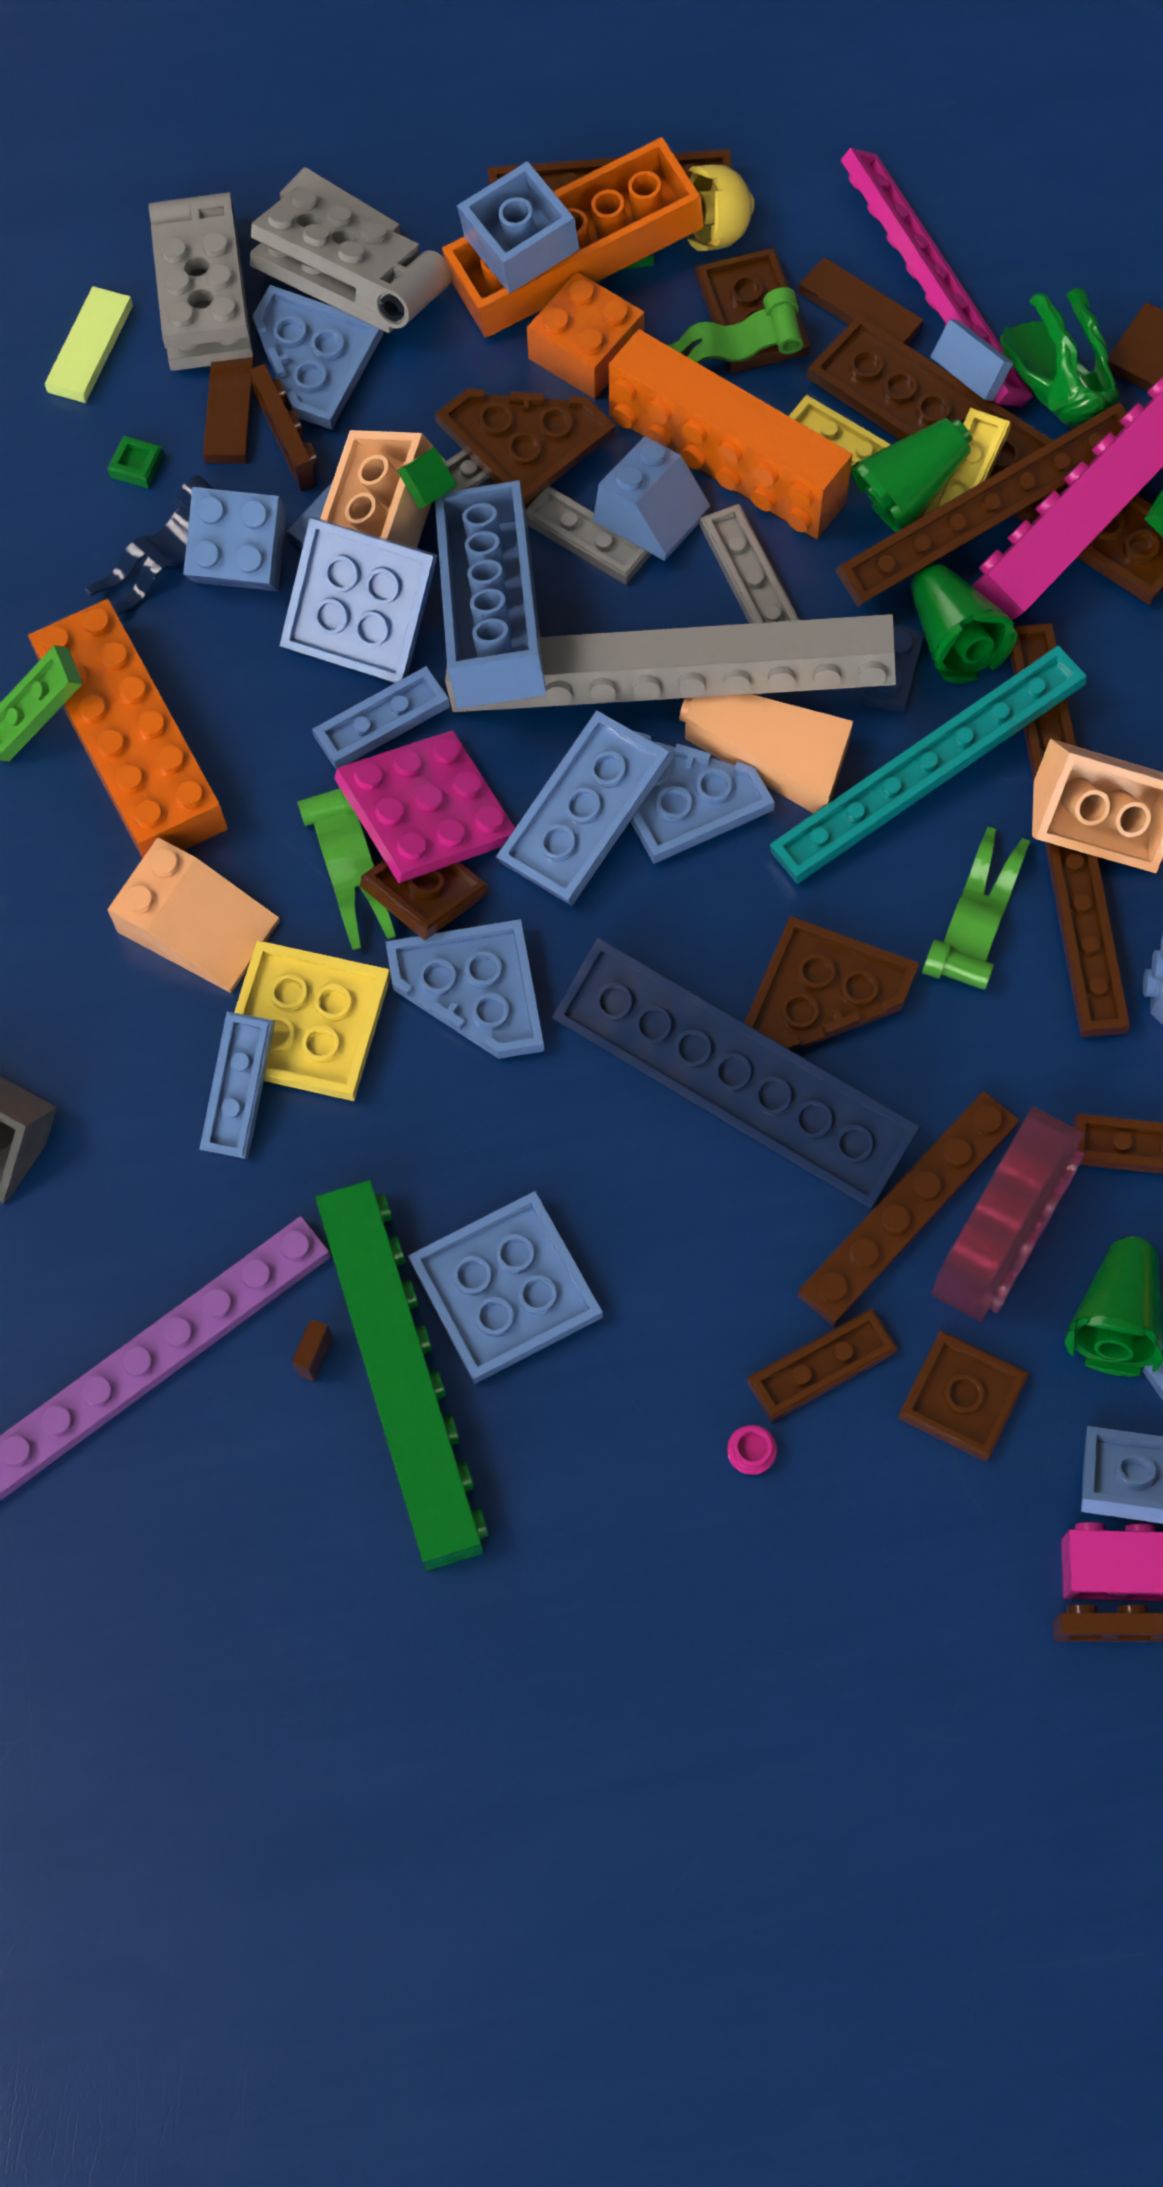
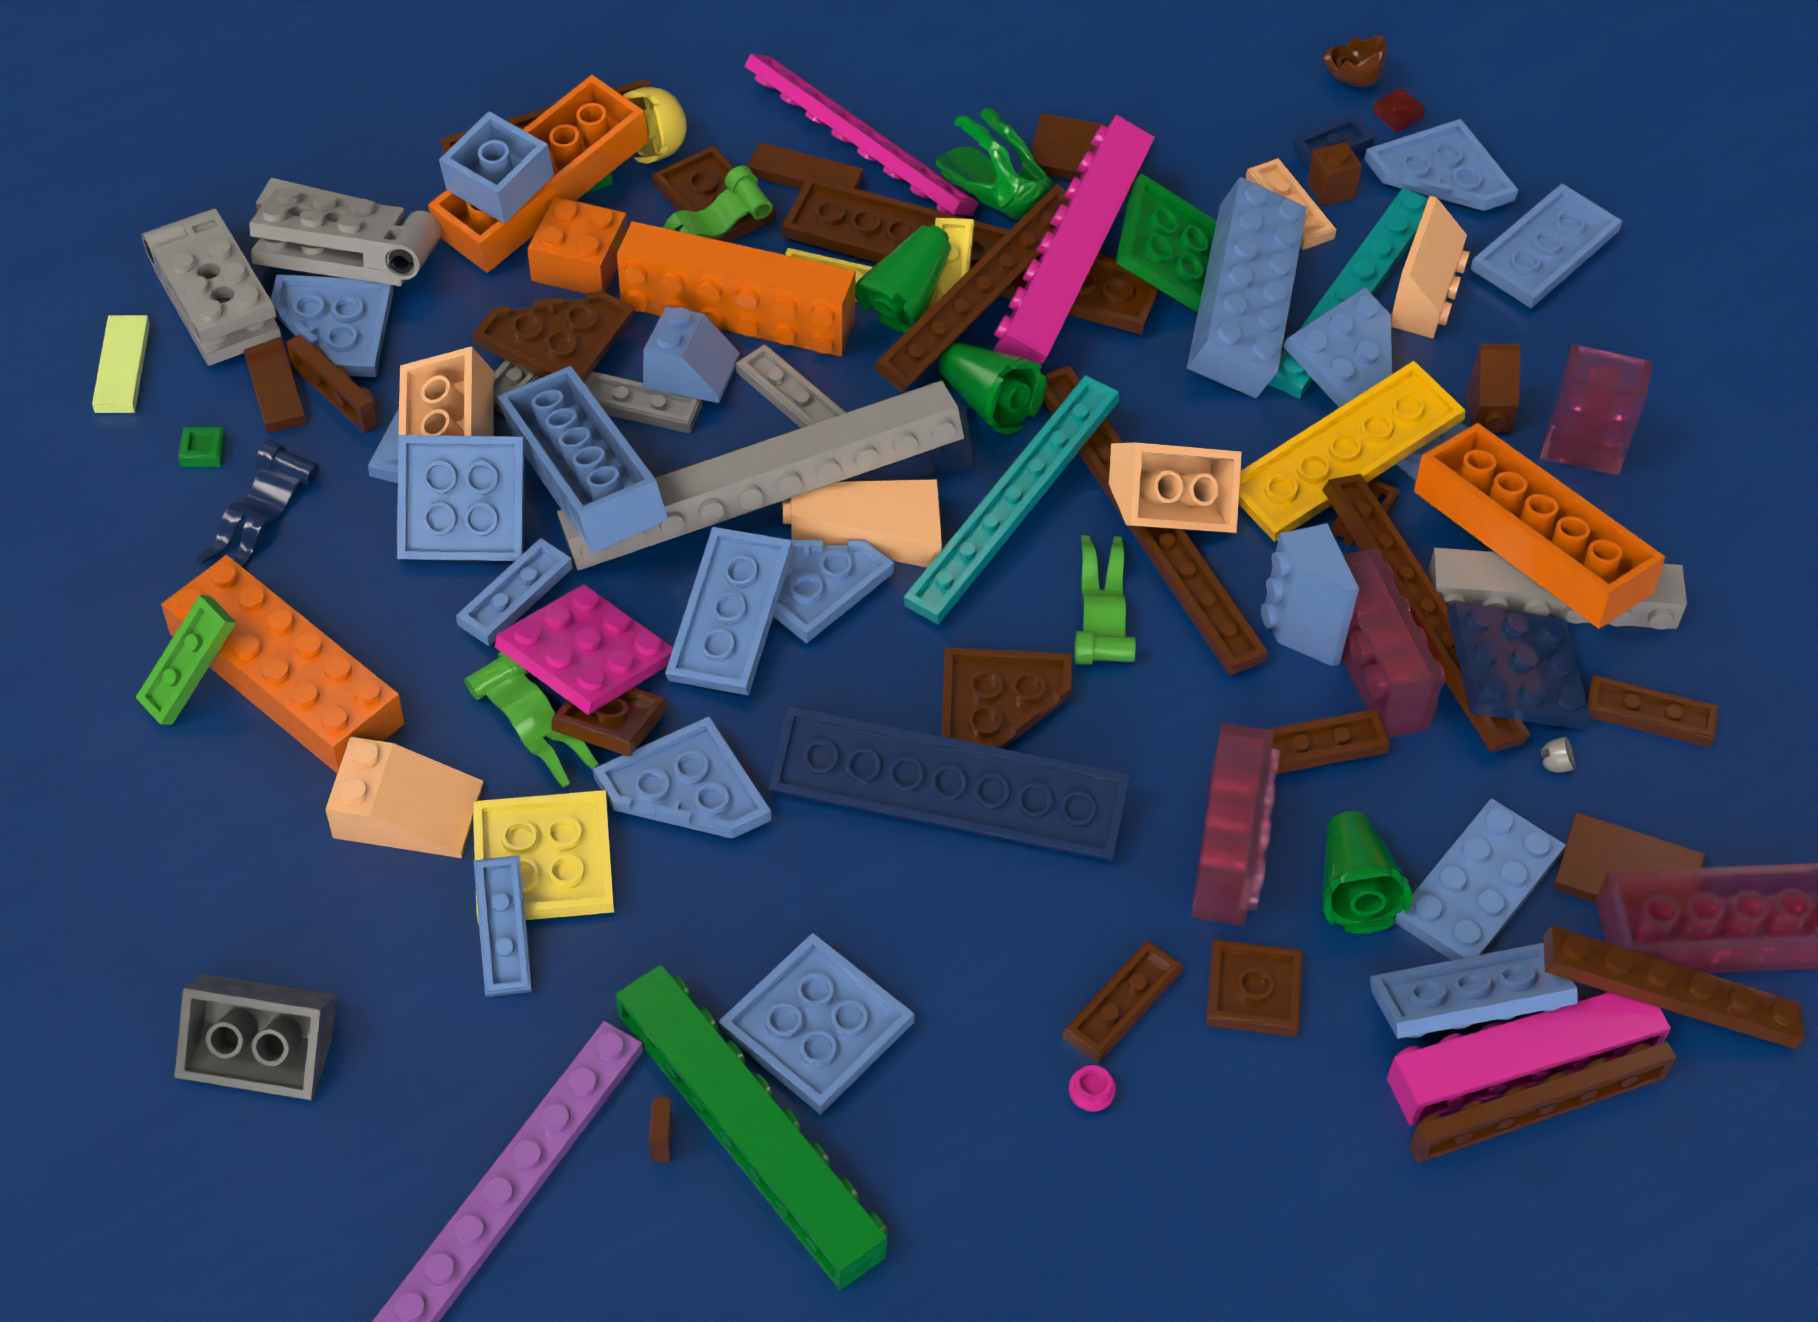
camera: 25 degrees left, 15 degrees down
(235, 539) = (326, 479): medium blue brick -> none
(427, 477) = (489, 381): green tile -> none
(908, 1208) = (1142, 854): reddish brown plate -> none
(971, 360) = (919, 185): medium blue tile -> none

